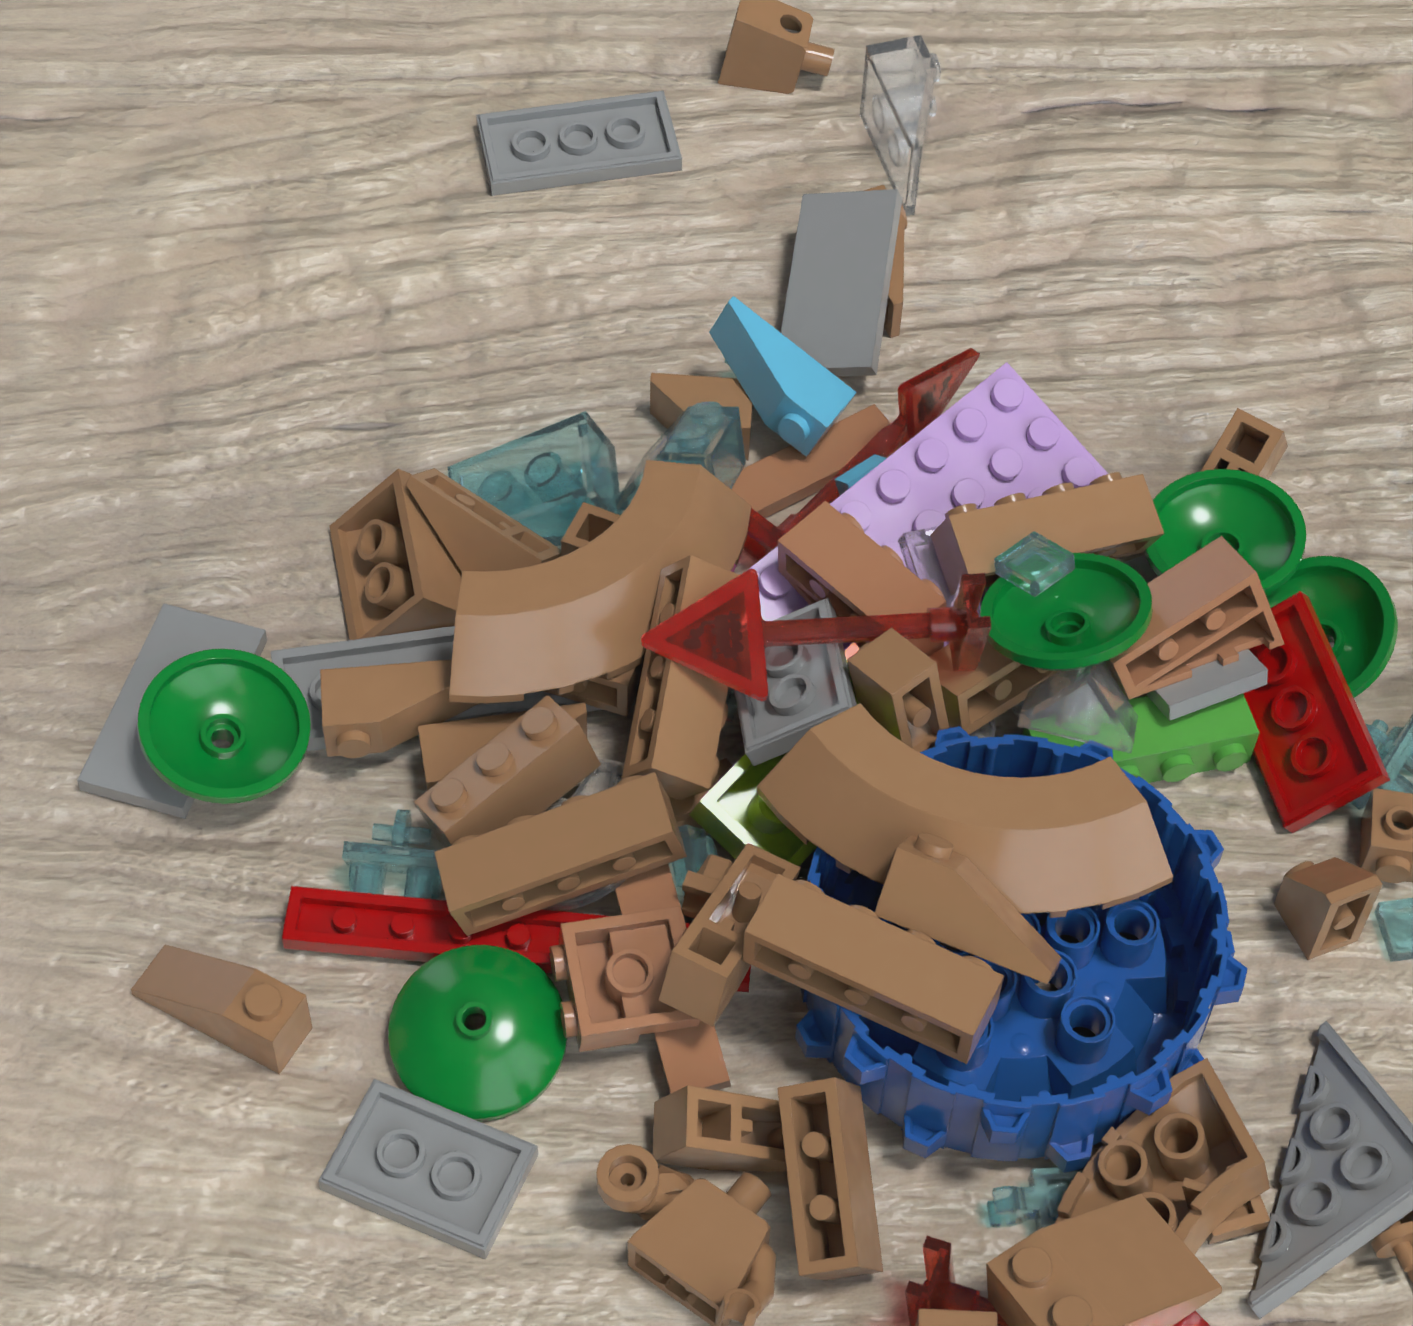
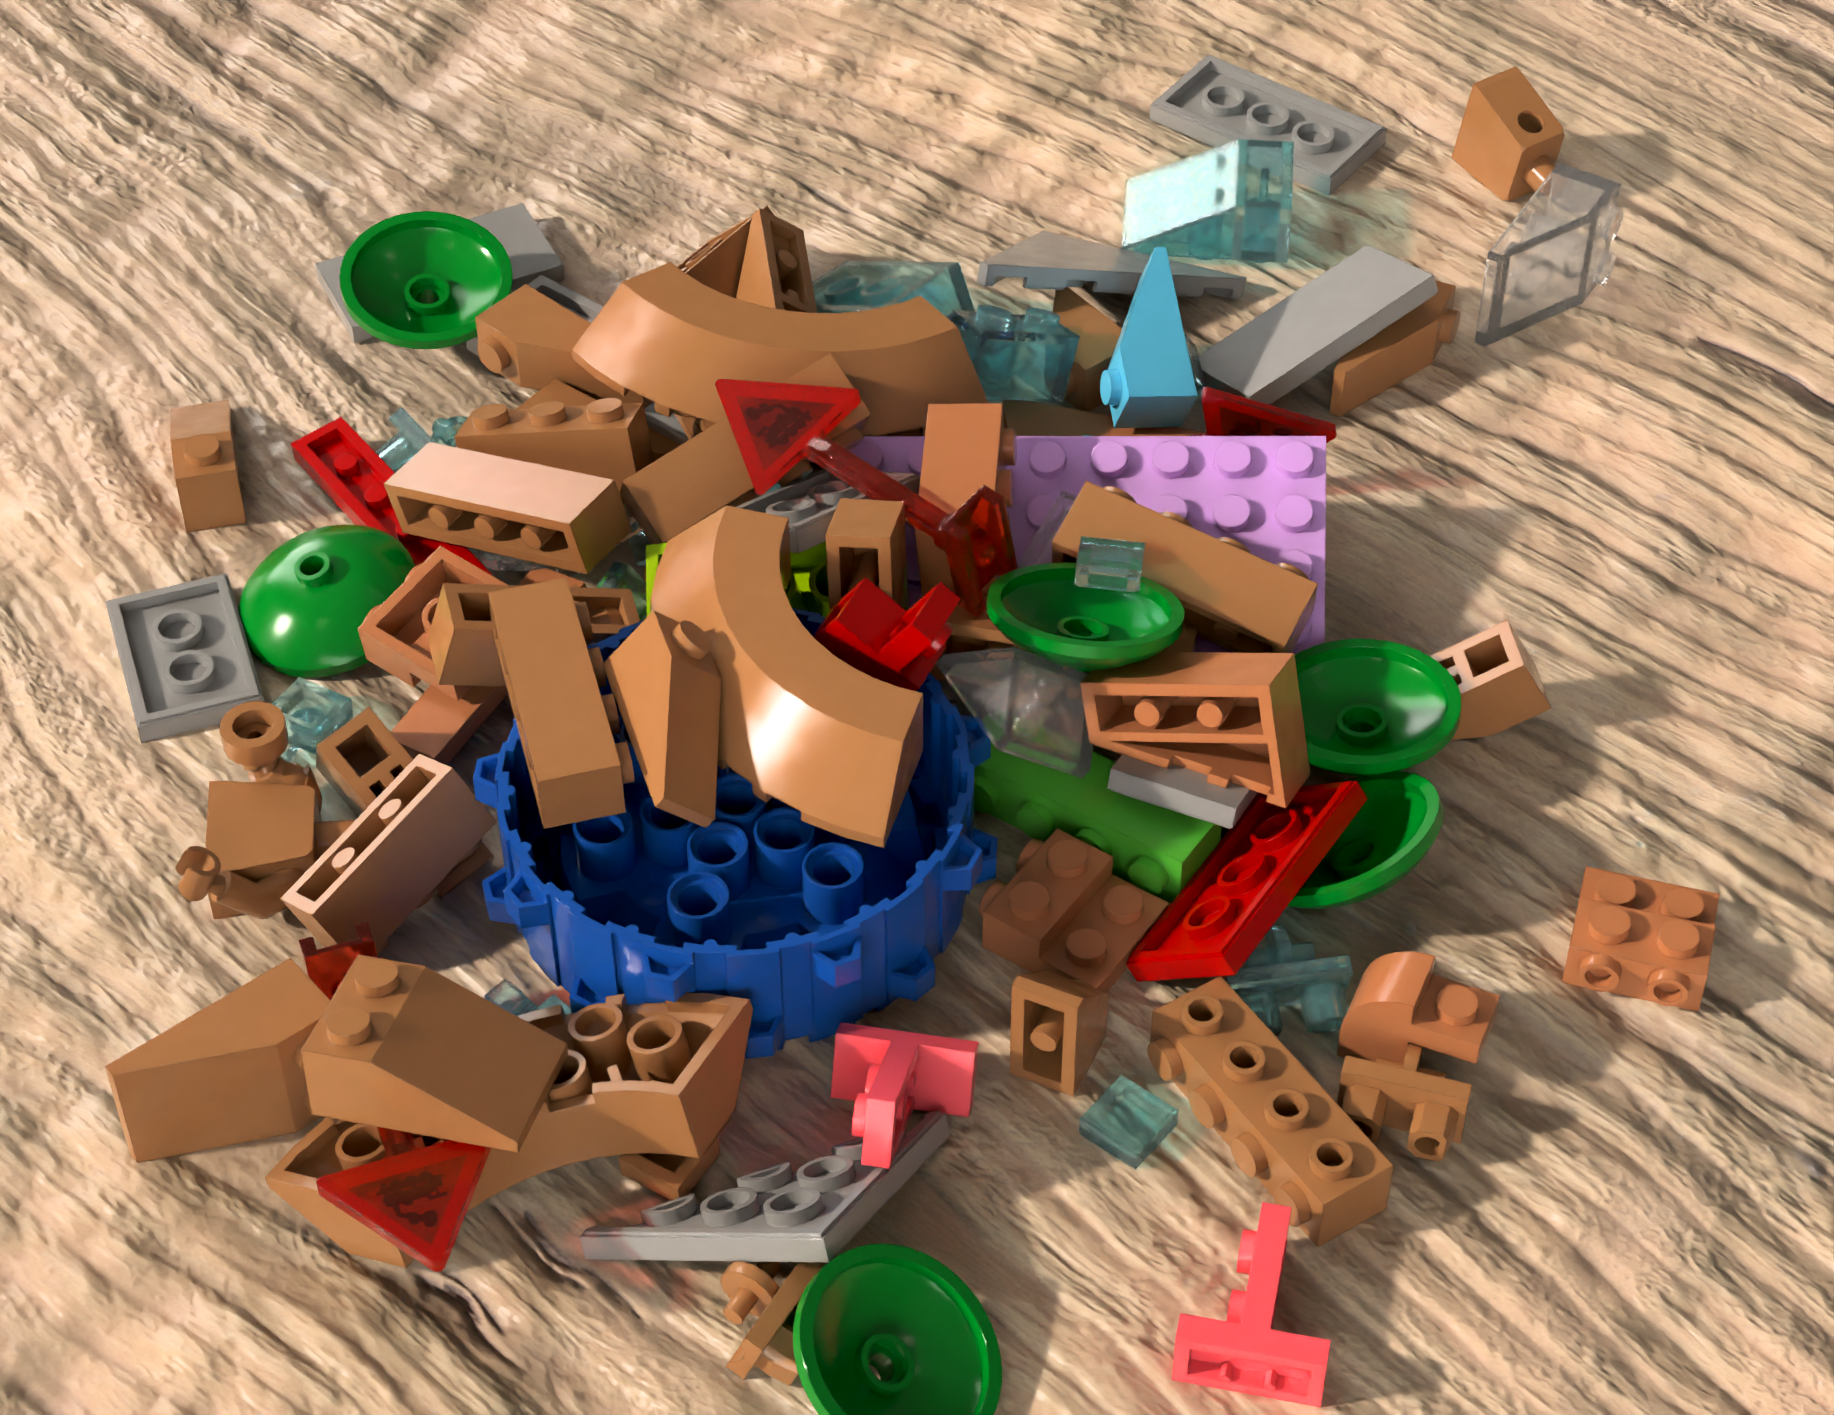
camera: 50 degrees right, 10 degrees down
(588, 1131) = (311, 715): none -> clear light blue plate
(632, 351) = (1064, 261): none -> light grey tile
(647, 233) = (1215, 204): none -> clear light blue slope
(1015, 736) = (884, 638): none -> red brick
(1239, 814) = (1067, 913): none -> nougat plate
(1296, 1018) = (895, 1073): none -> coral bracket

